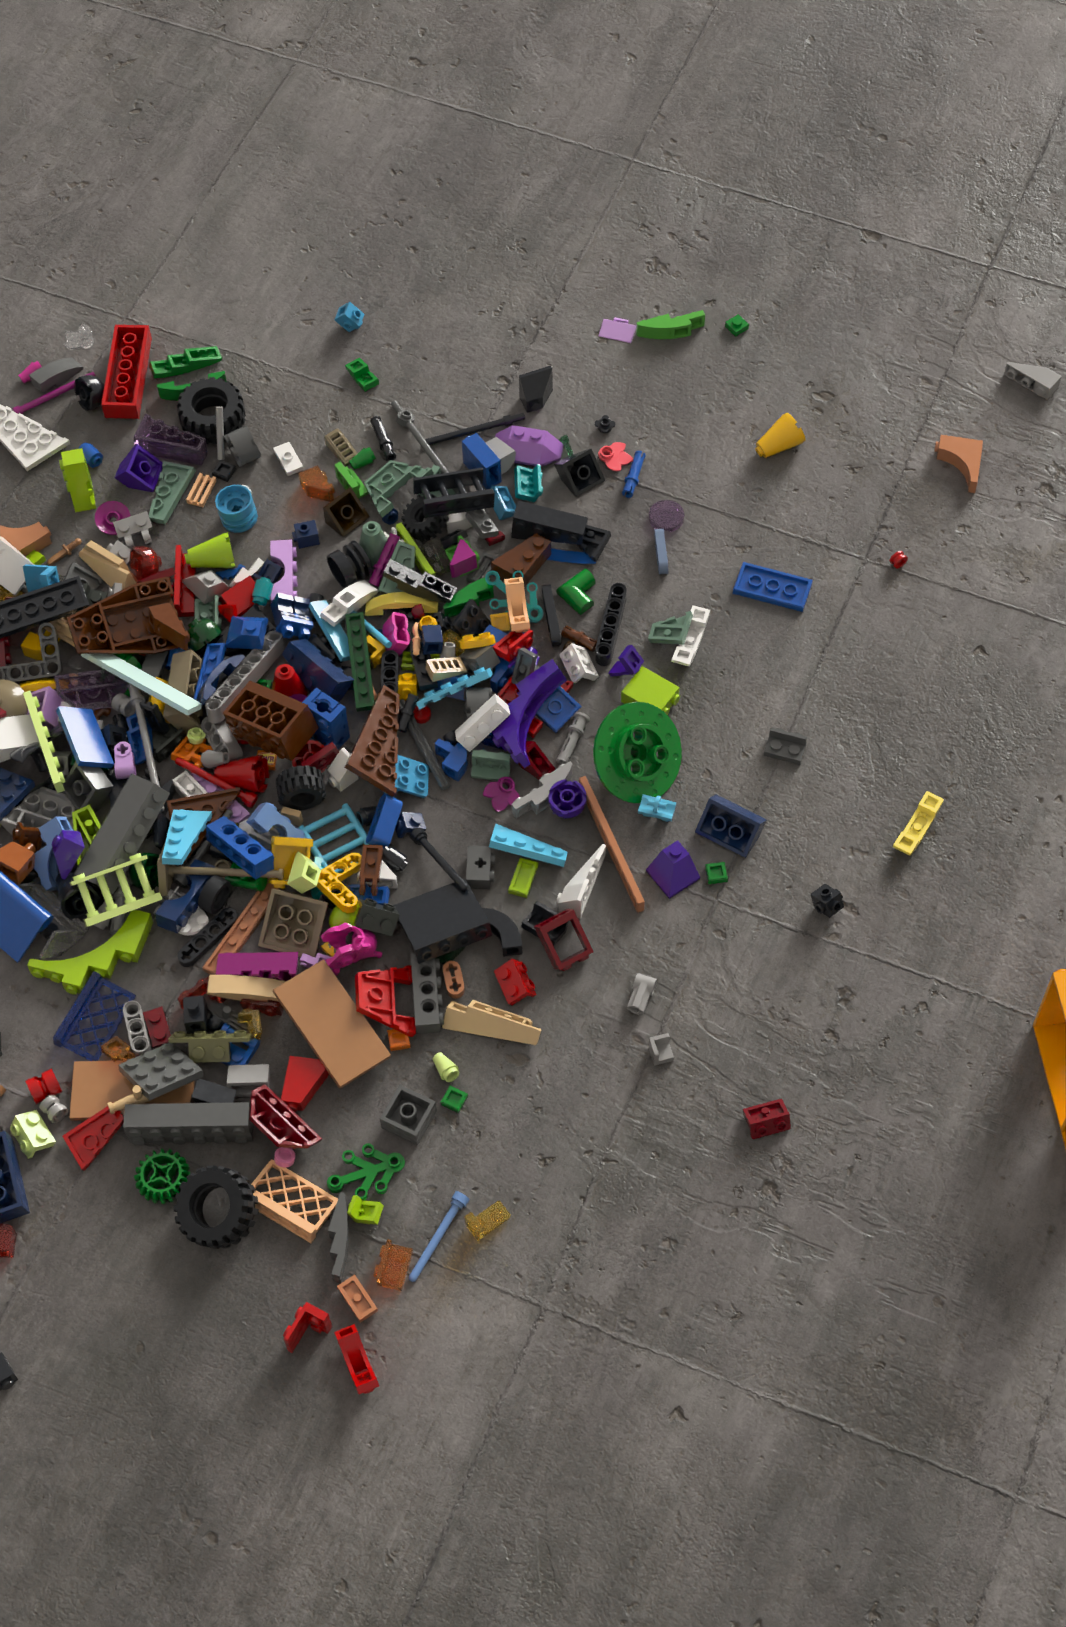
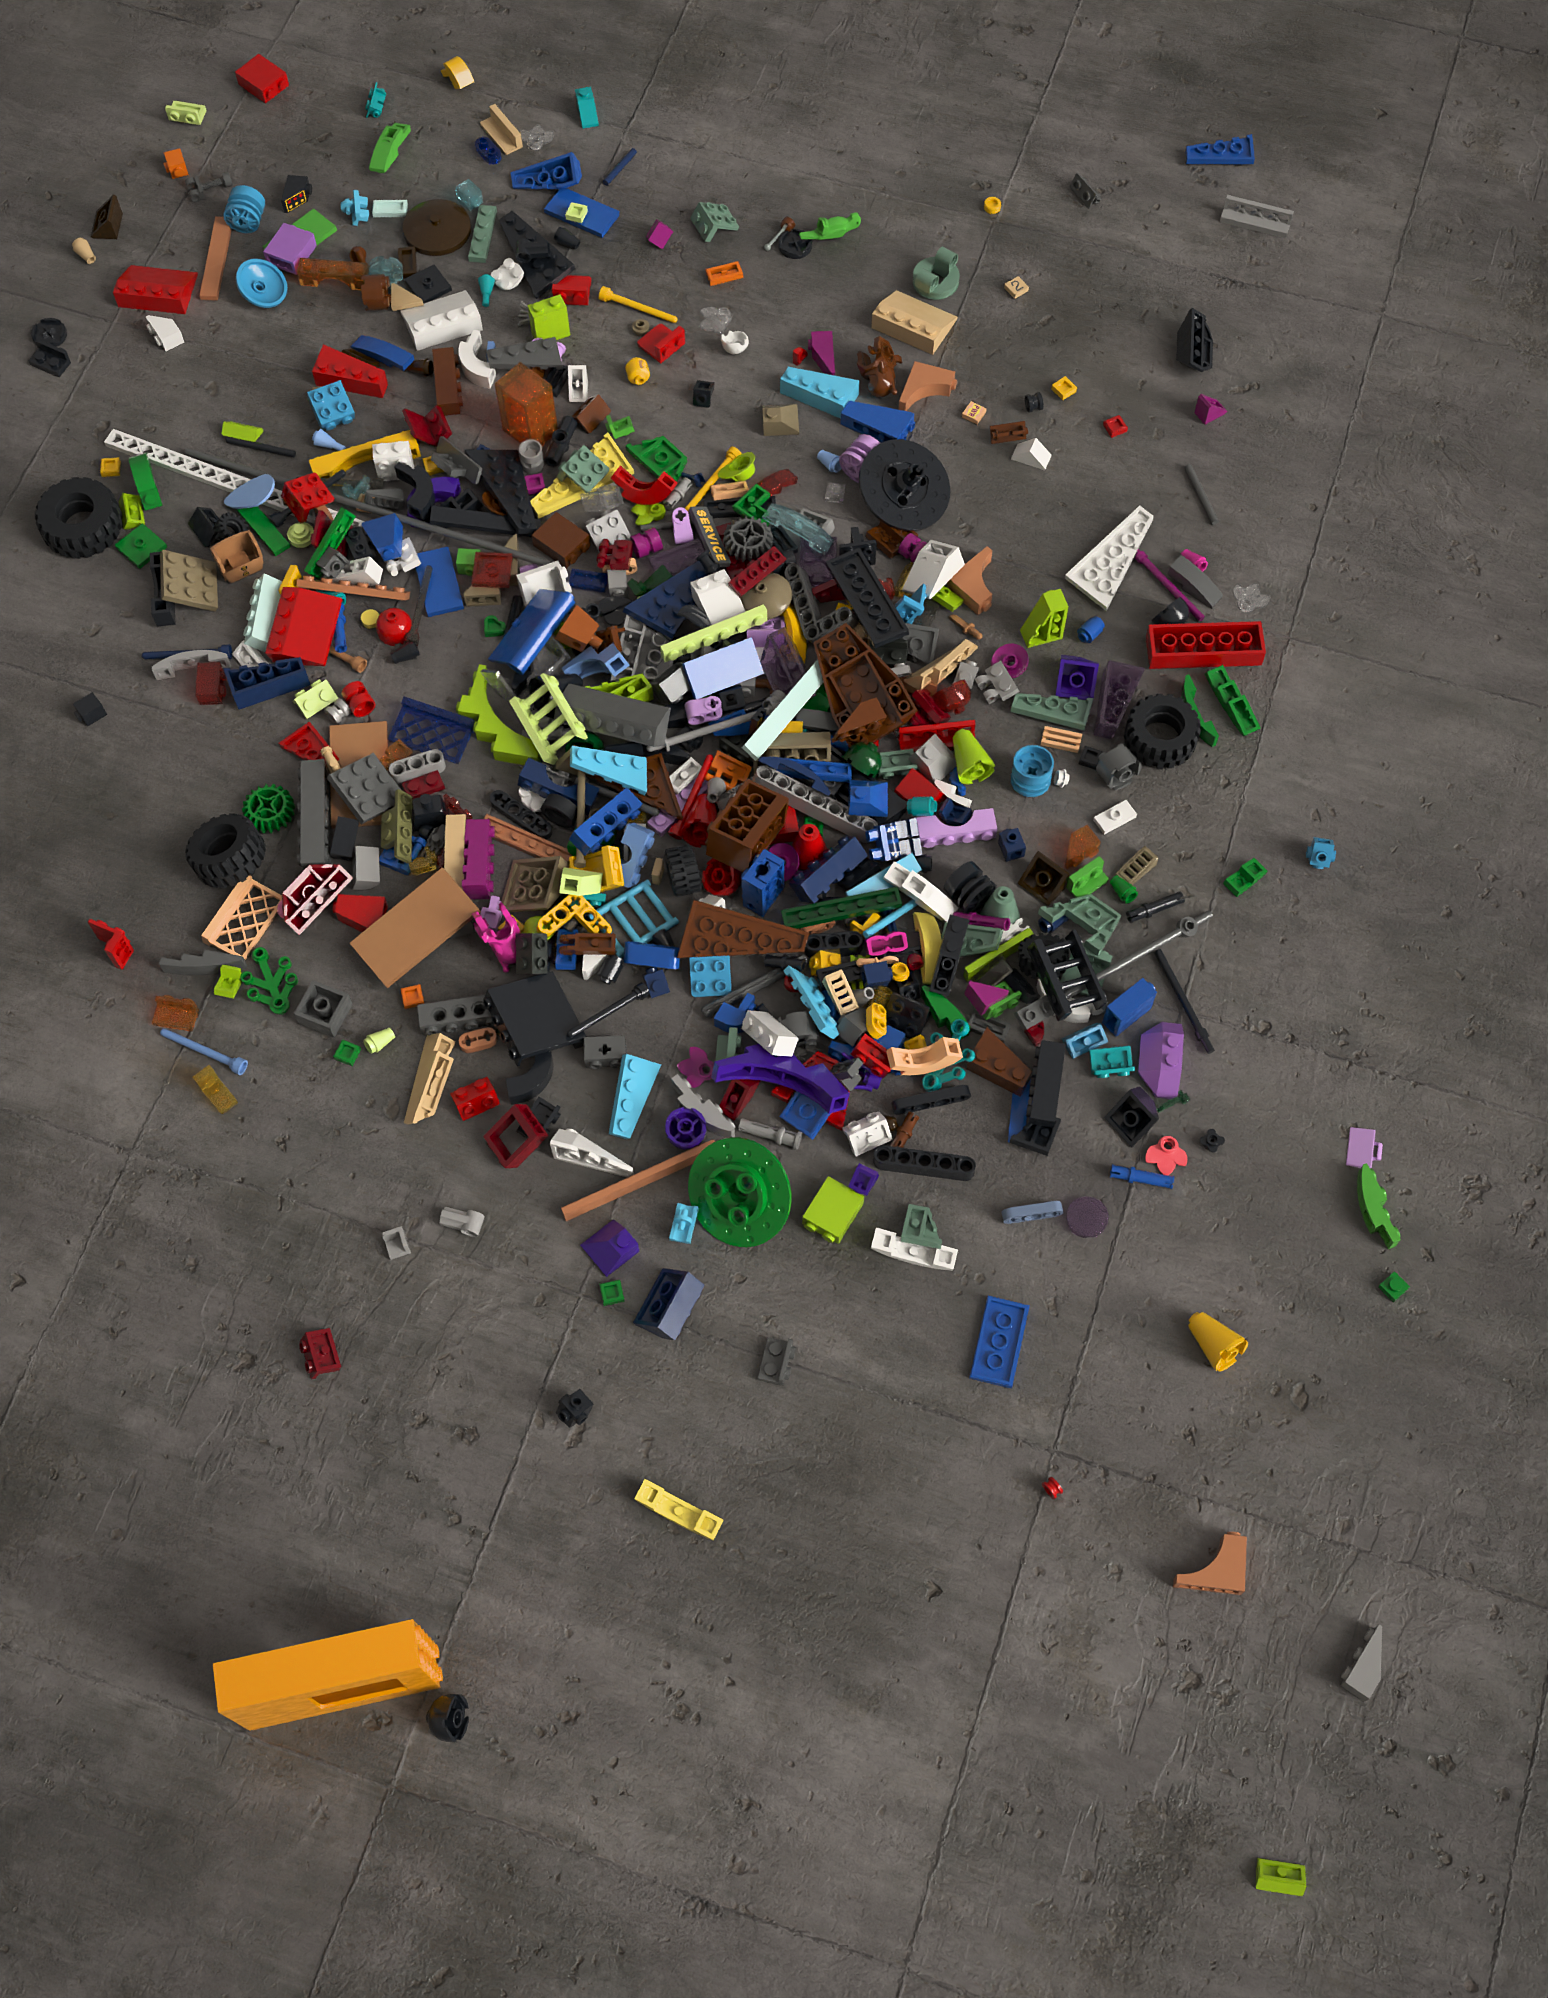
camera: 85 degrees right, 5 degrees up
(67, 850) = (589, 669): dark purple slope -> none
(196, 735) = (741, 774): yellowish green plate -> none
(220, 433) = (1128, 738): light grey bar -> none
(228, 611) = (897, 781): red tile -> none
(323, 757) = (713, 883): dark red plate -> none
(356, 1360) = (79, 992): red arch -> none
(357, 1298) = (143, 985): nougat plate -> none
(377, 998) = (447, 965): red wing -> none
(503, 452) = (1142, 1023): light grey brick -> none
(523, 877) = (596, 1097): lime tile -> none
(535, 388) = (1245, 1058): black slope -> none
(573, 591) = (970, 1122): green brick -> none

